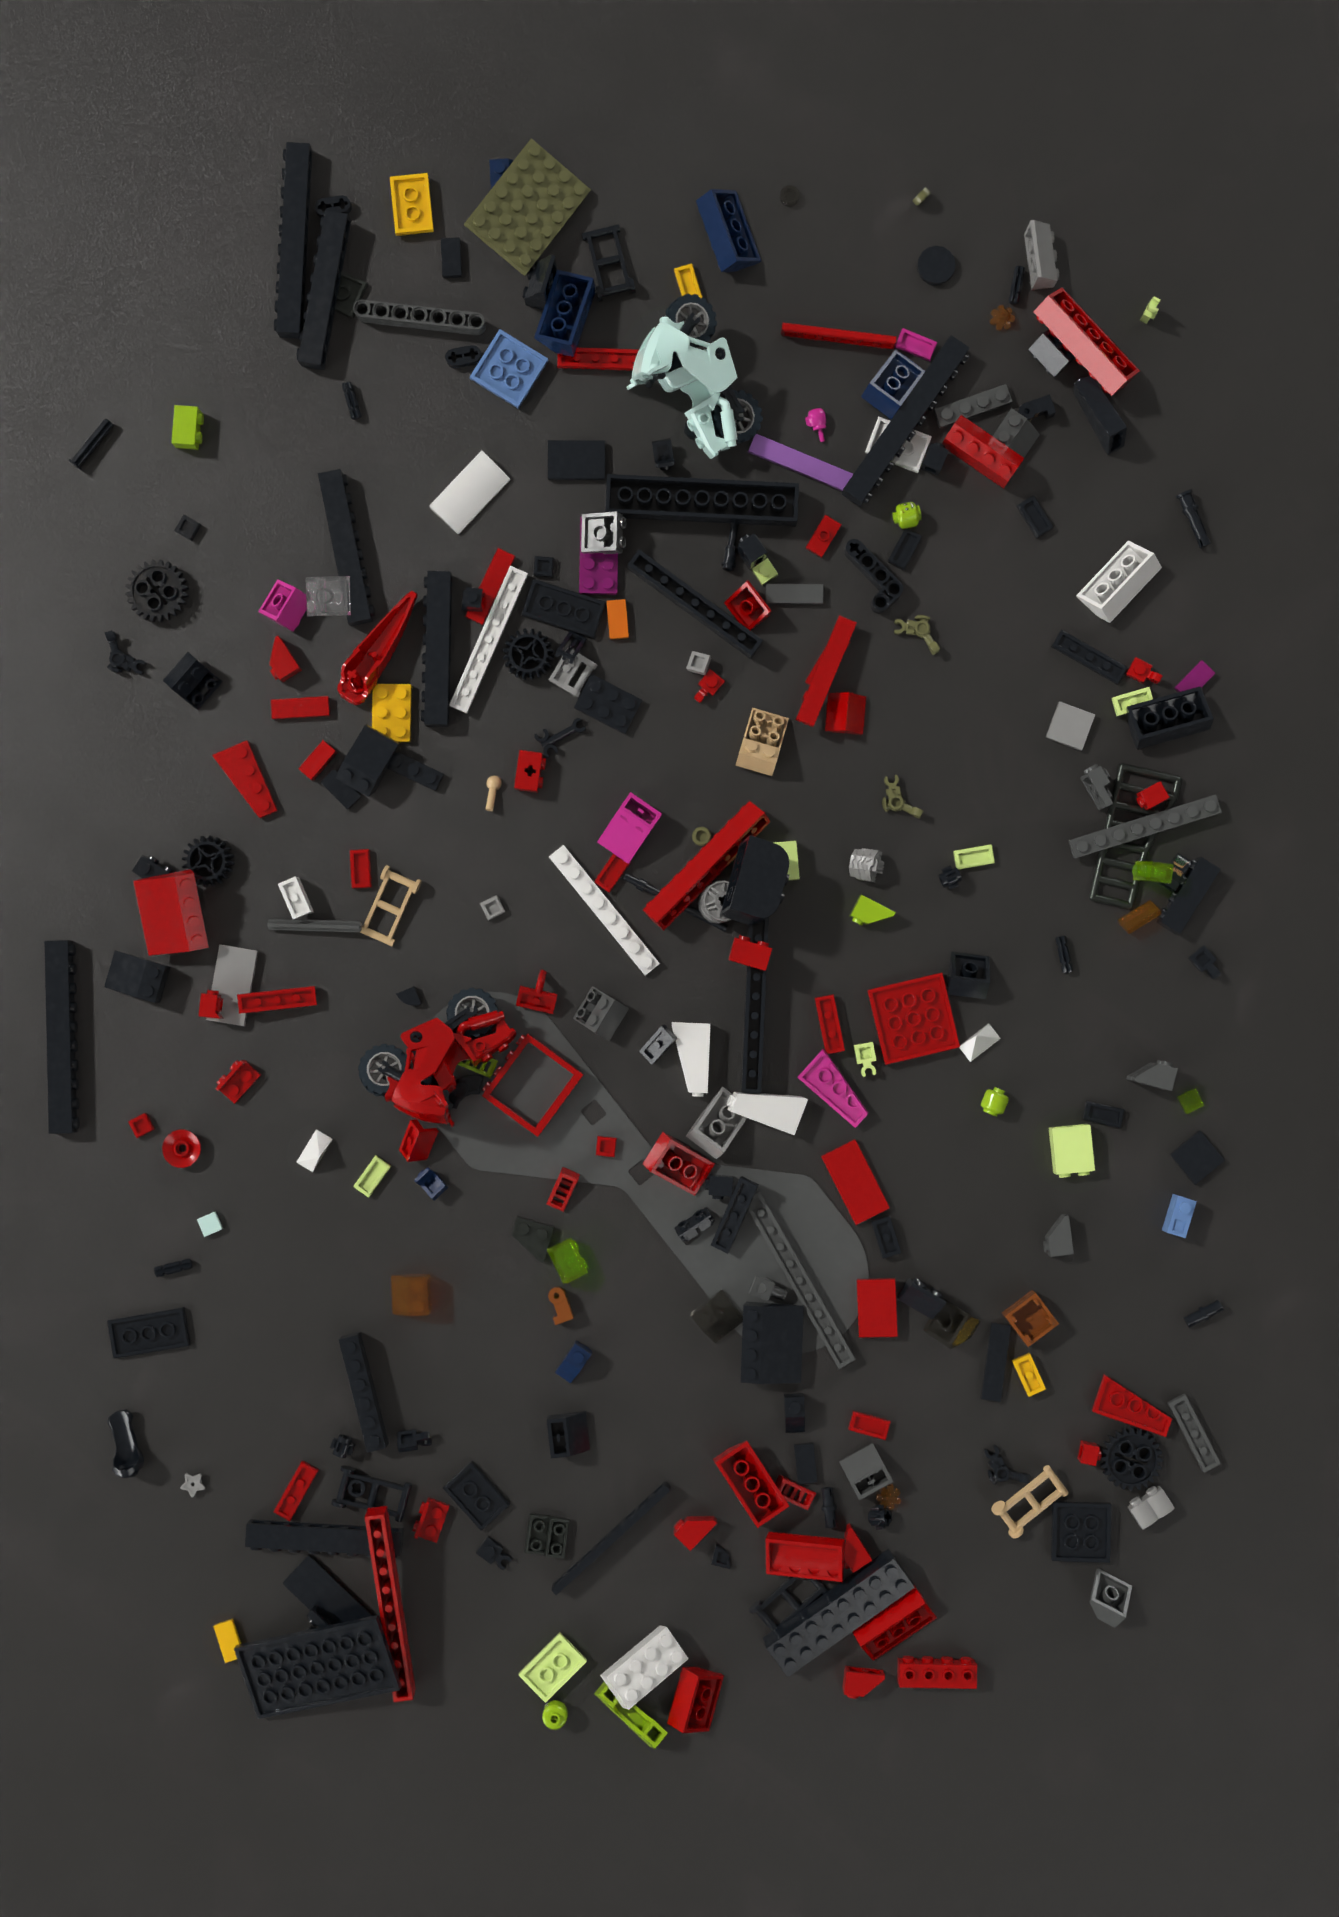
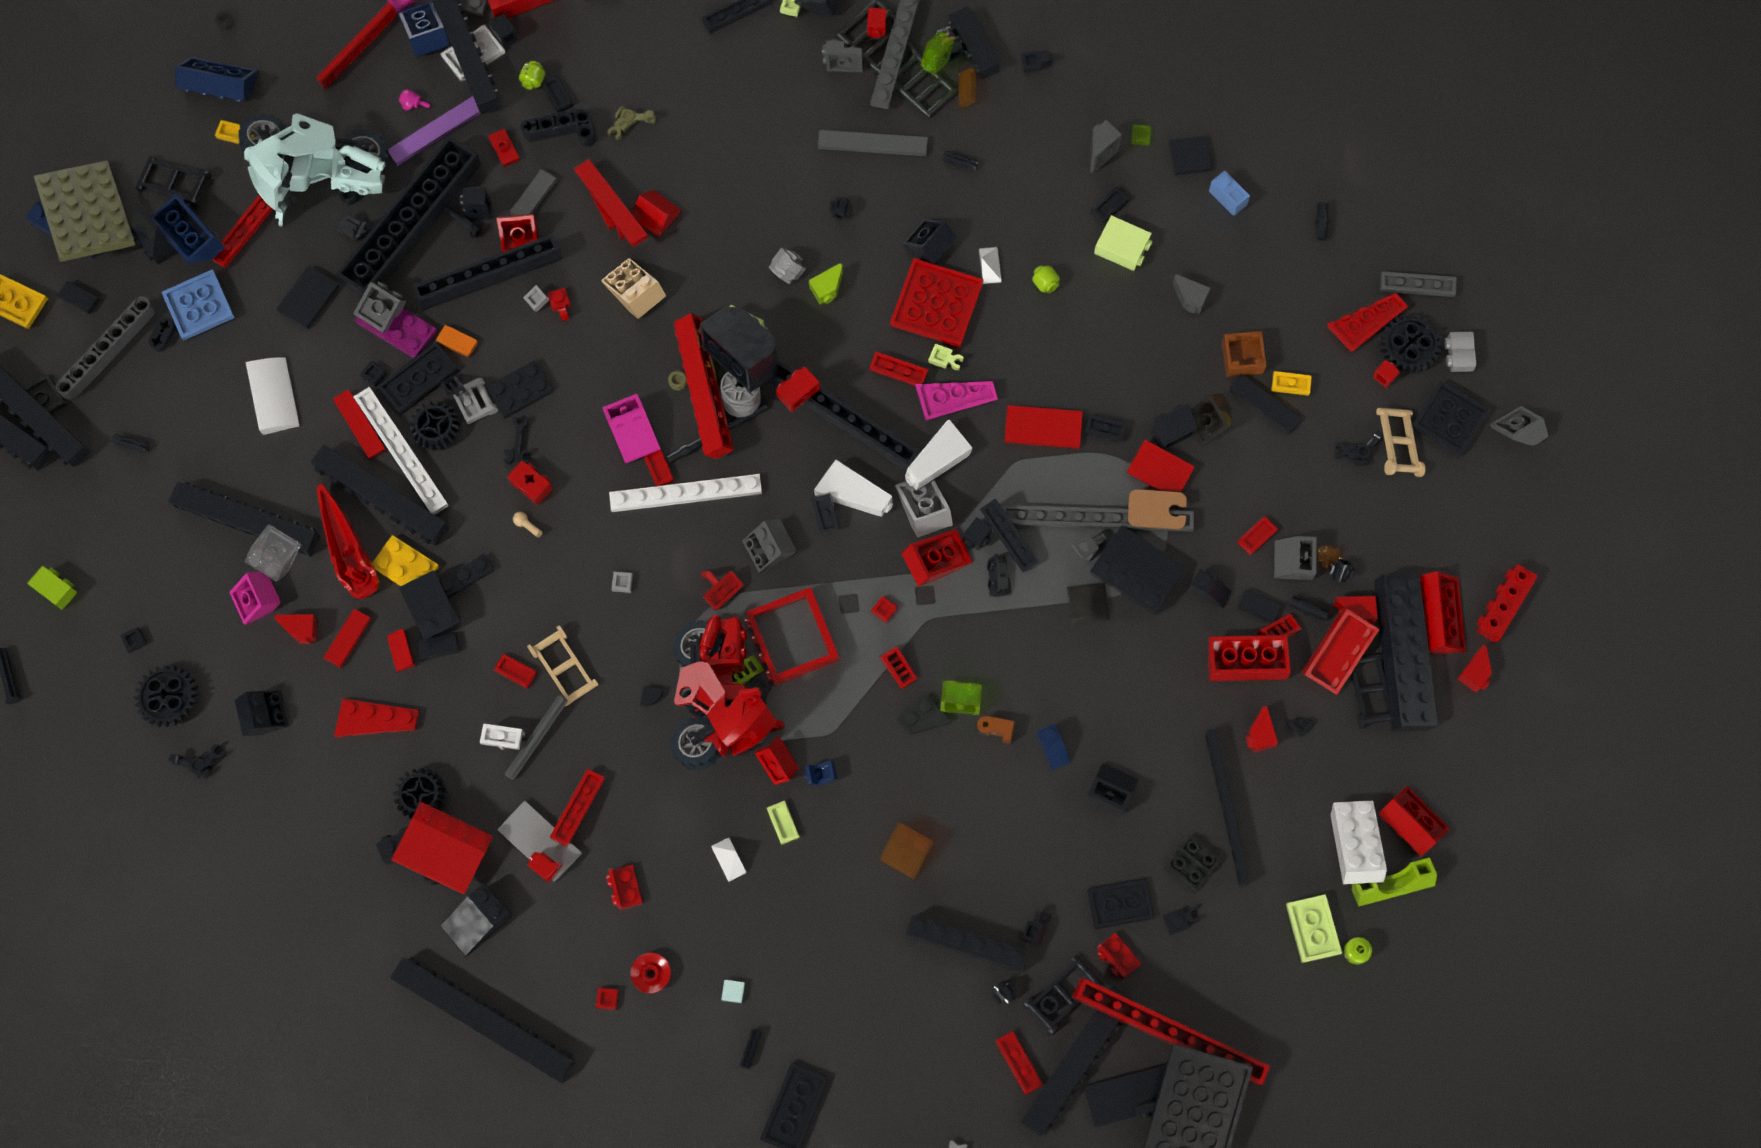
camera: 50 degrees left, 15 degrees down
(472, 599) = (359, 440): black window -> none
(764, 571) = (499, 207): yellowish green plate -> none
(834, 1322) = (1152, 507): none -> medium nougat piece
(895, 800) = (751, 215): olive piece -> none
(974, 857) = (836, 182): yellowish green tile -> none
(1033, 864) = (872, 143): none -> dark grey tile
(1070, 726) = (781, 54): light grey tile -> none

